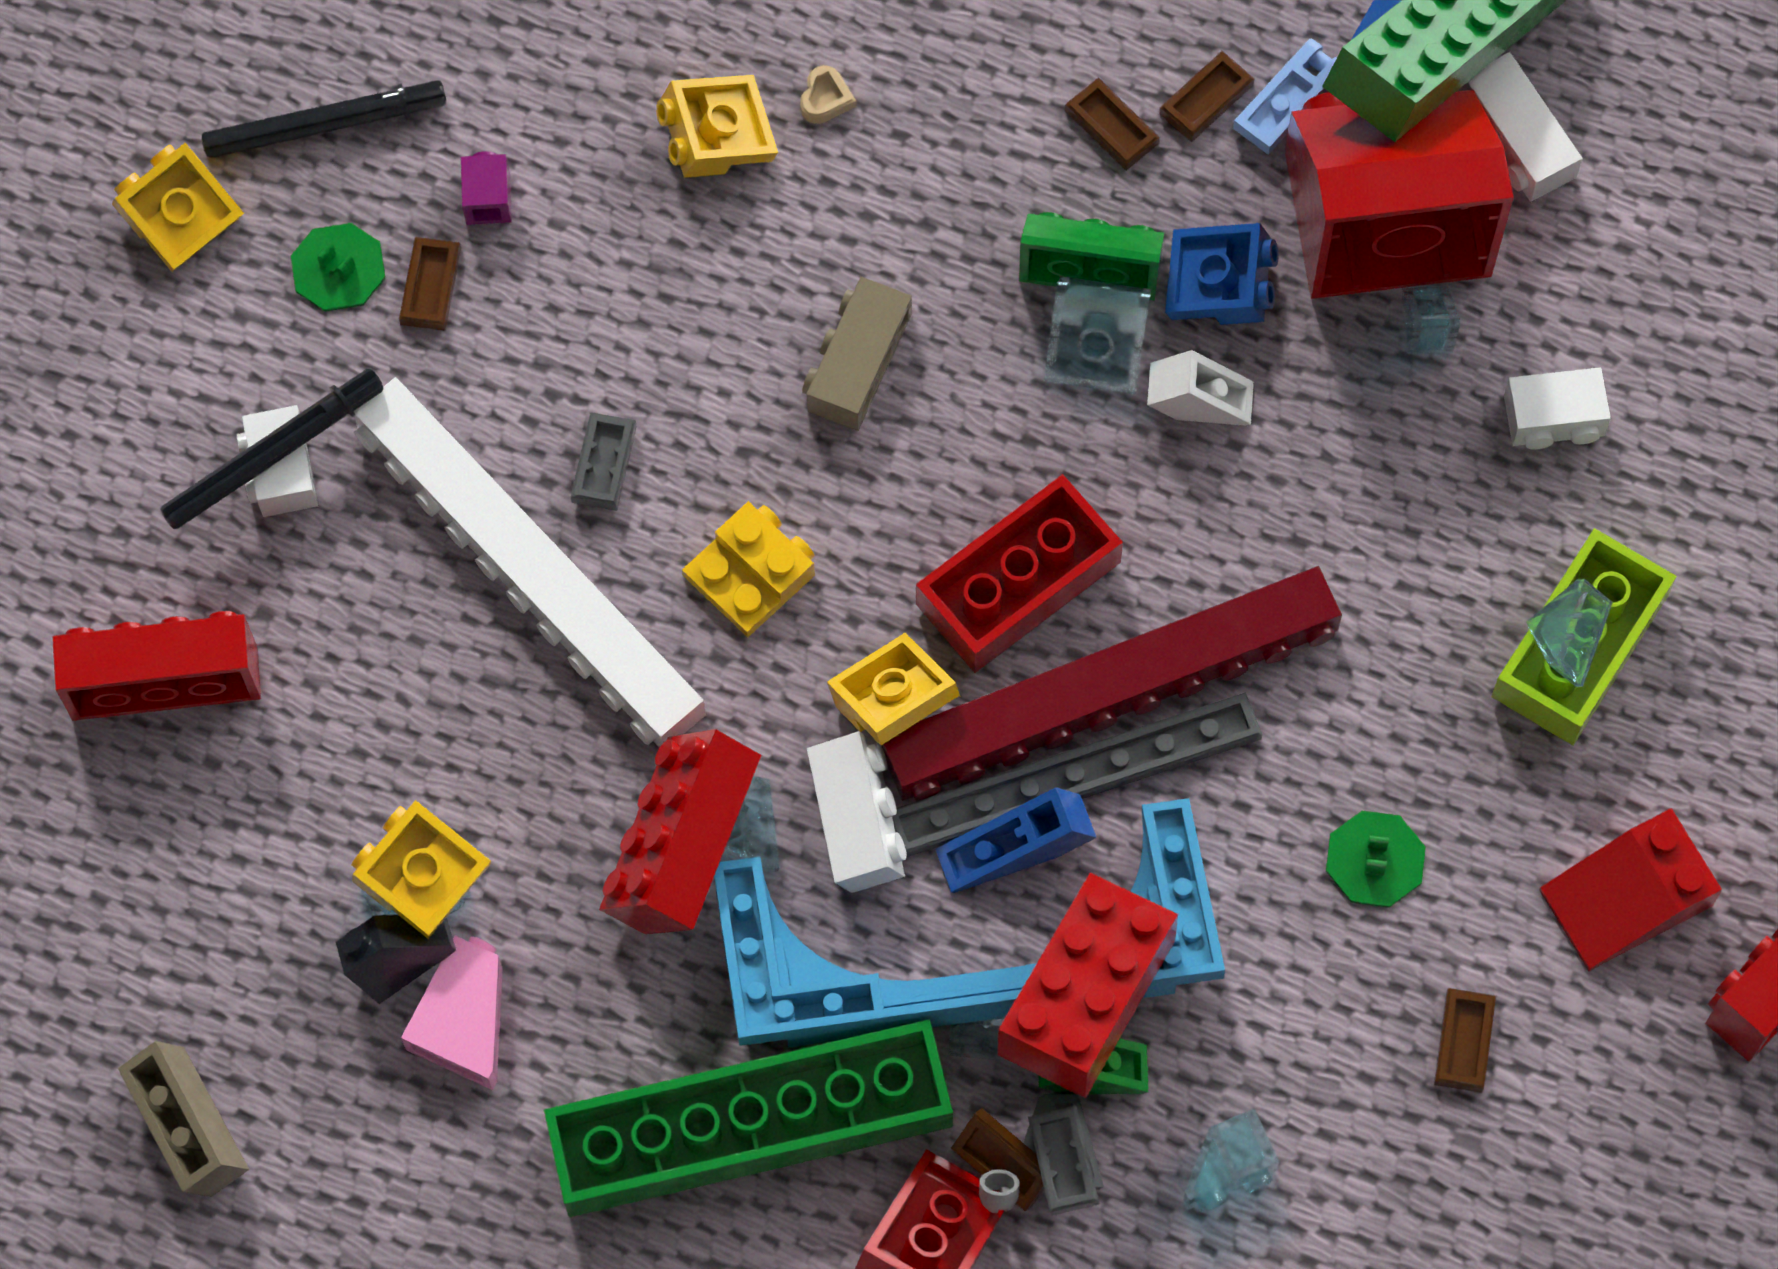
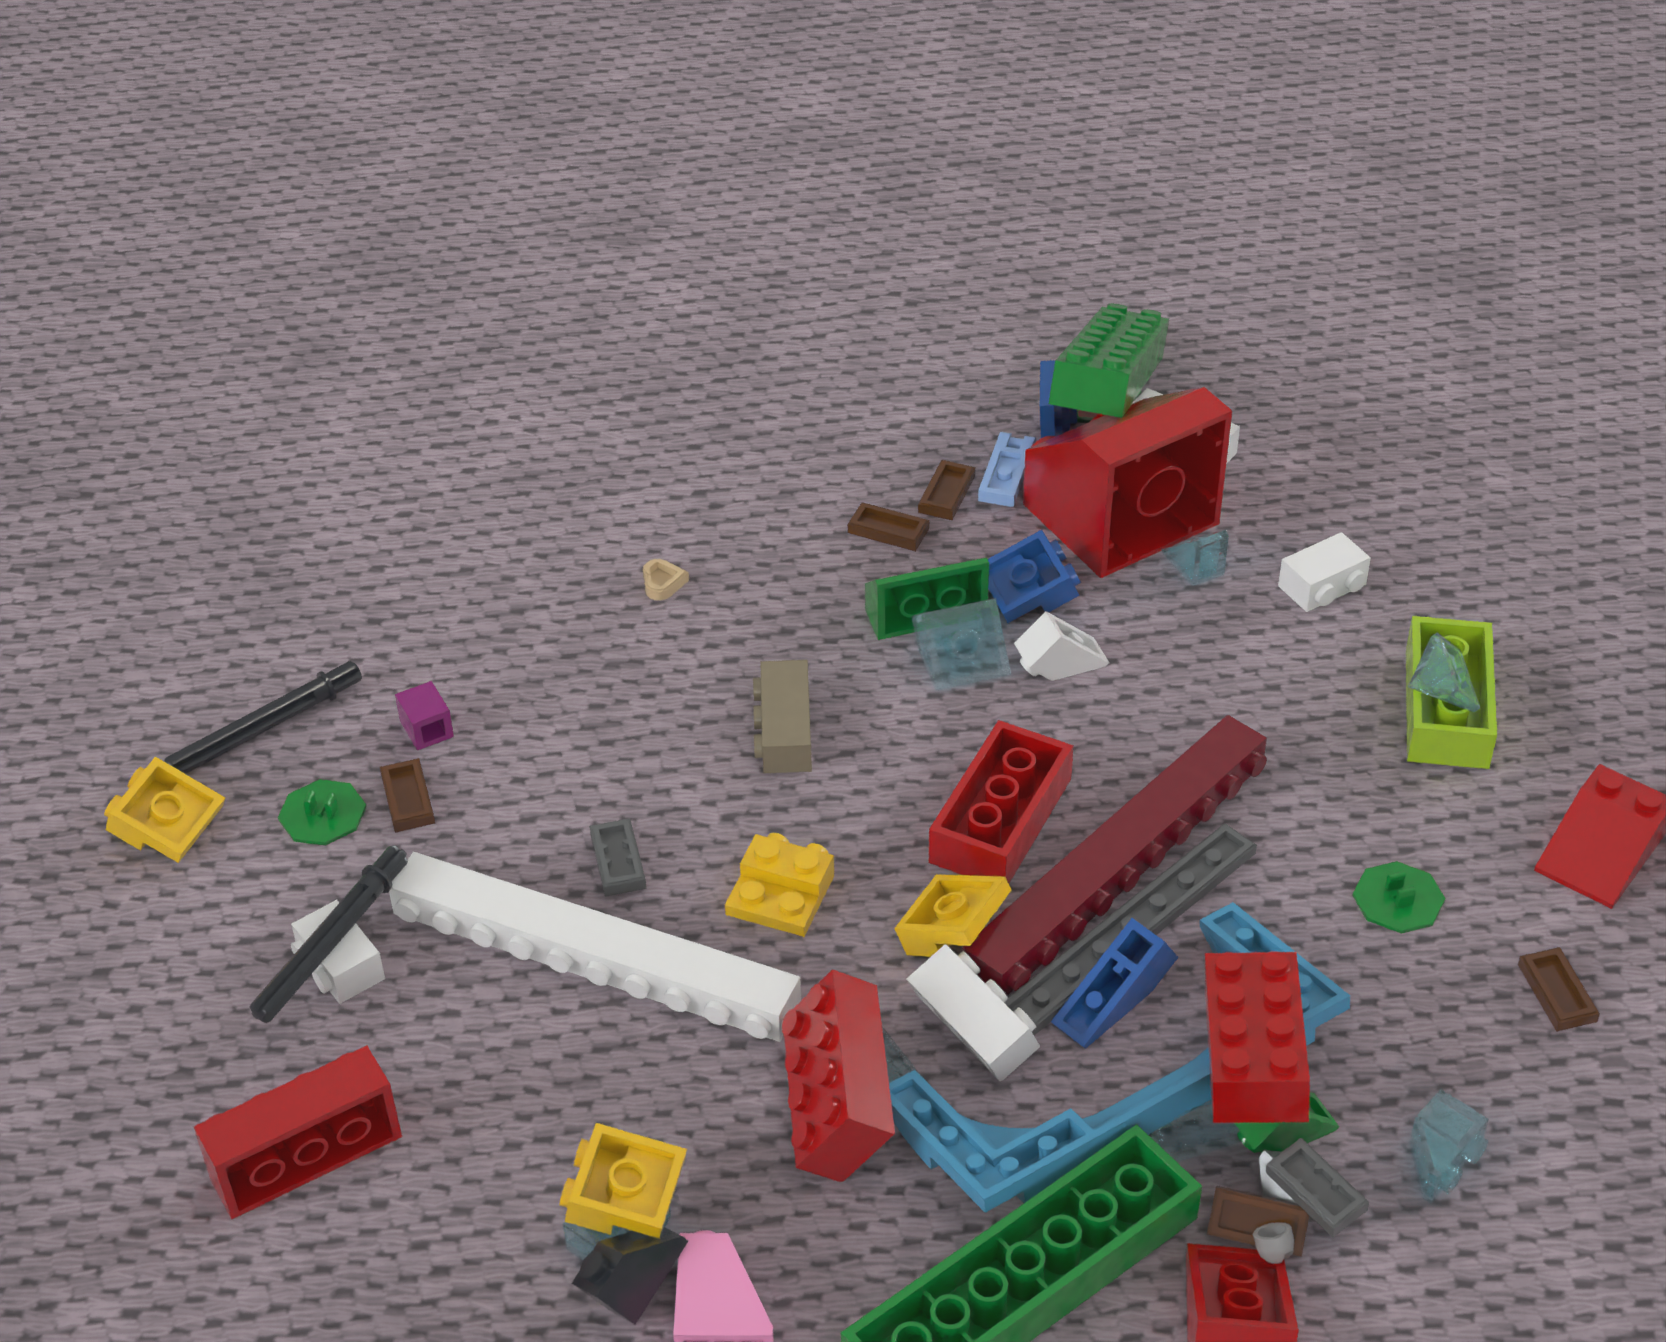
camera: 25 degrees left, 25 degrees down
(715, 124) = (588, 617): yellow plate -> none

